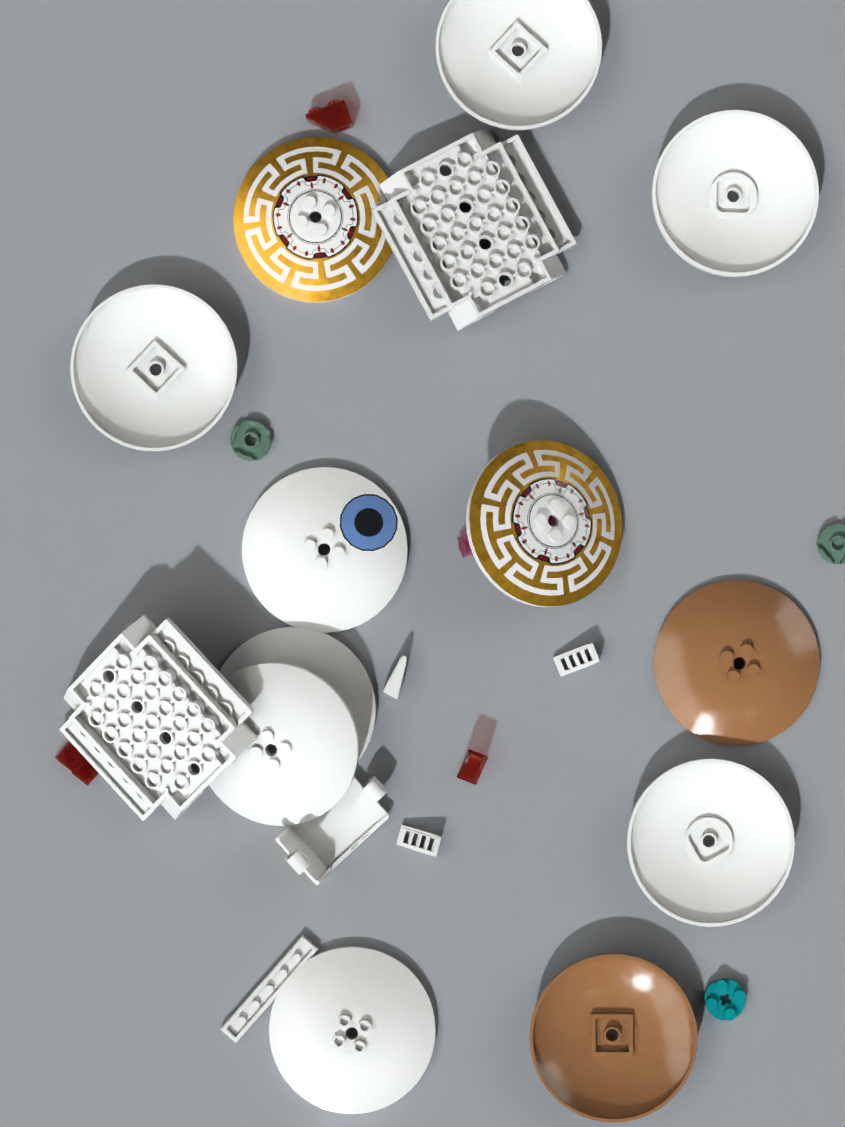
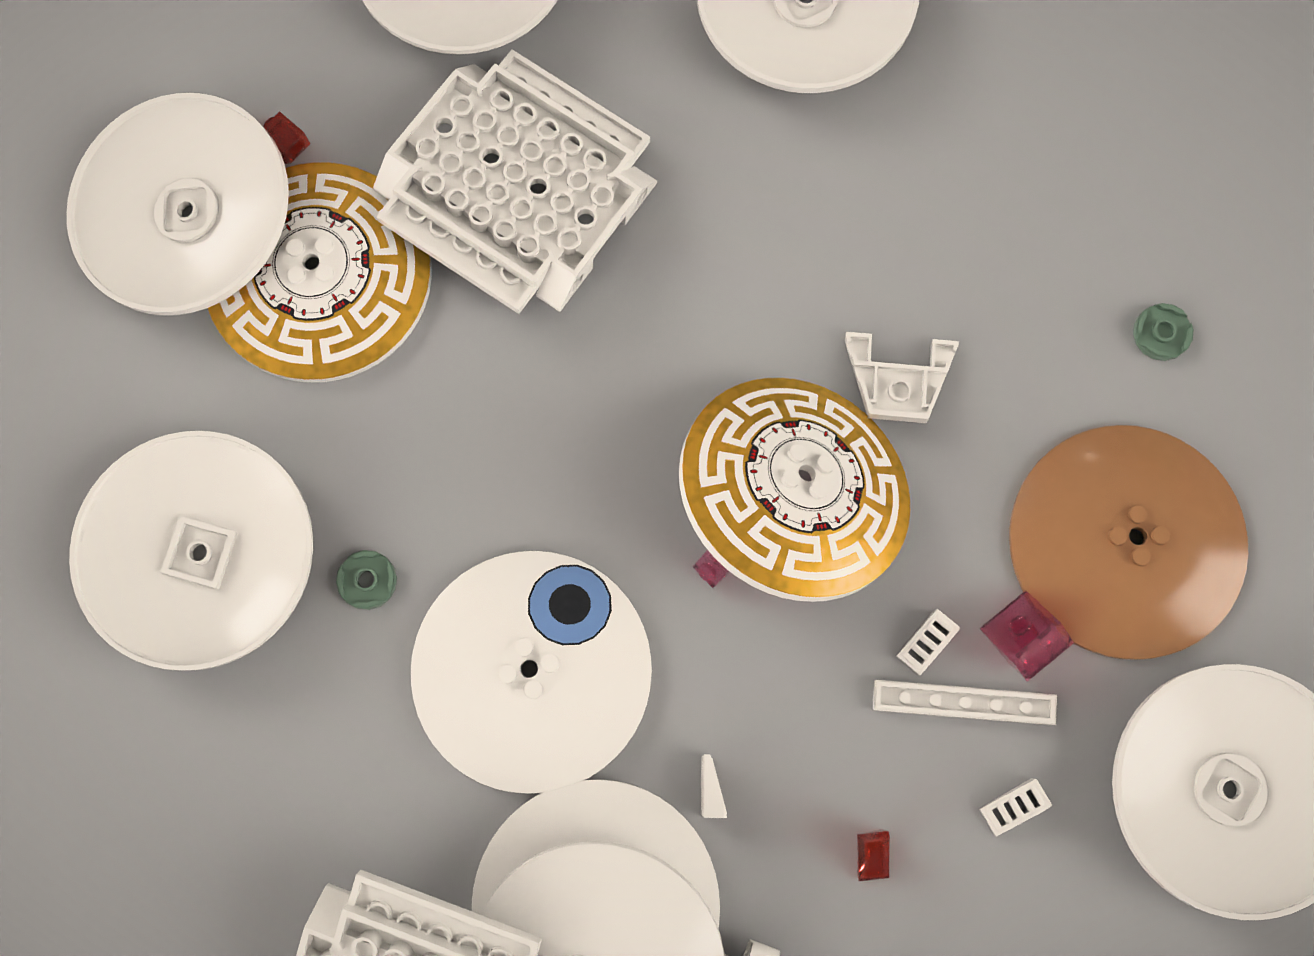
camera: 25 degrees left, 10 degrees down
(226, 102) = (141, 178): none -> white dish
(578, 707) = (964, 702): none -> white tile
(591, 783) = (1032, 810): none -> white slope
(638, 687) = (1027, 635): none -> clear pink slope
(647, 494) = (899, 390): none -> white wing

